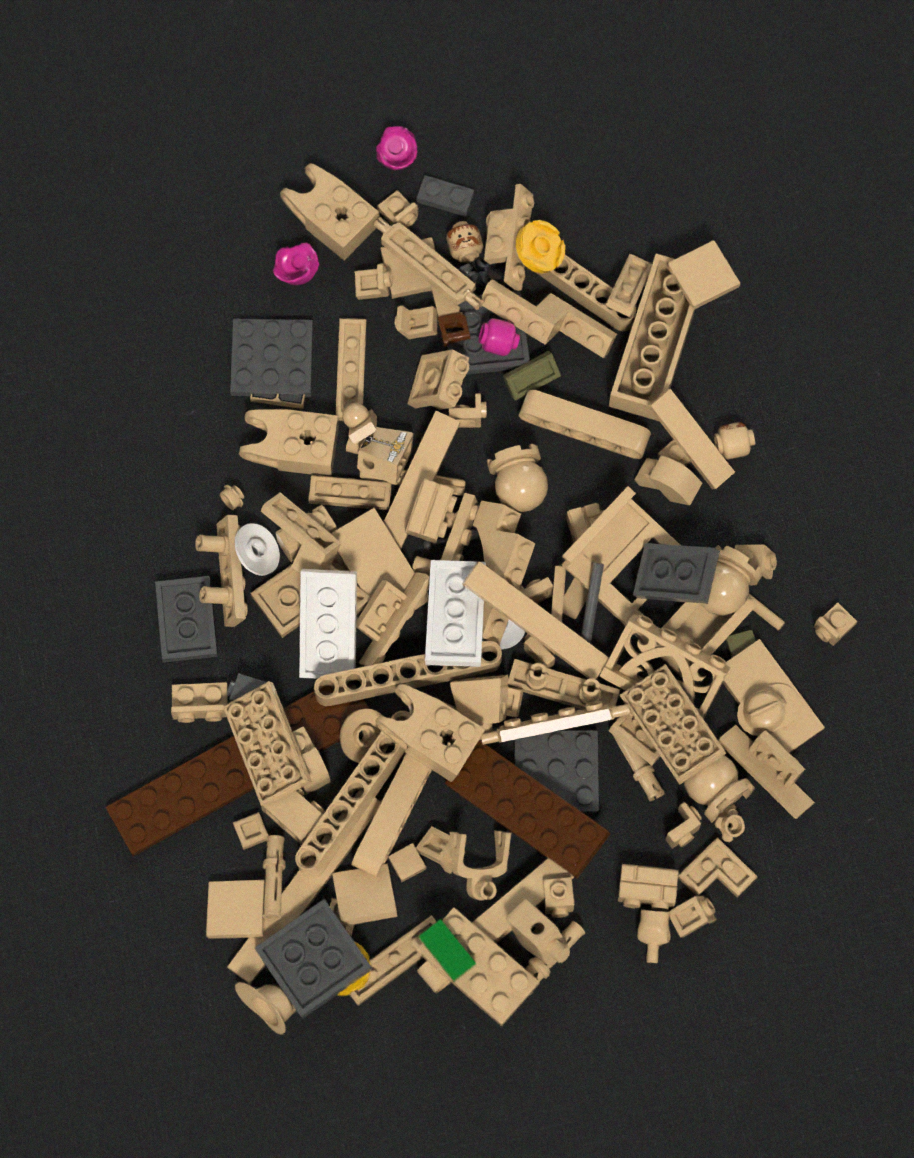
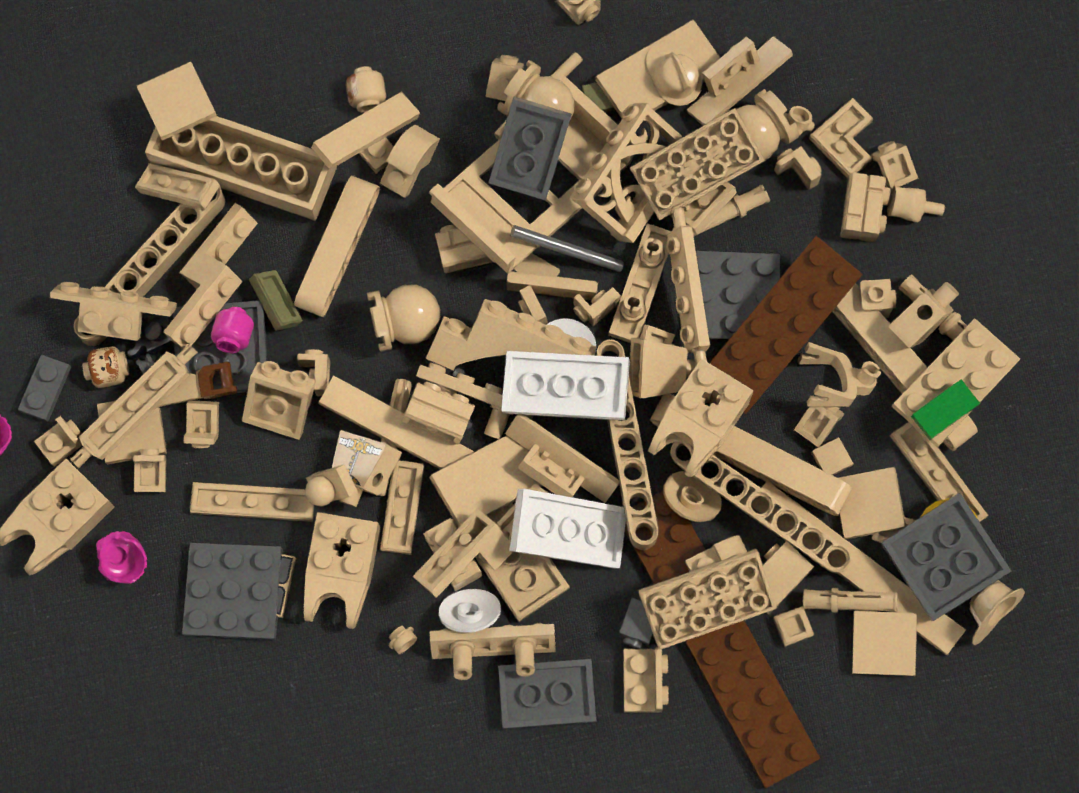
camera: 85 degrees left, 5 degrees up
(535, 621) = (575, 302): tan tile -> none
(540, 246) = (128, 276): yellow tile -> none

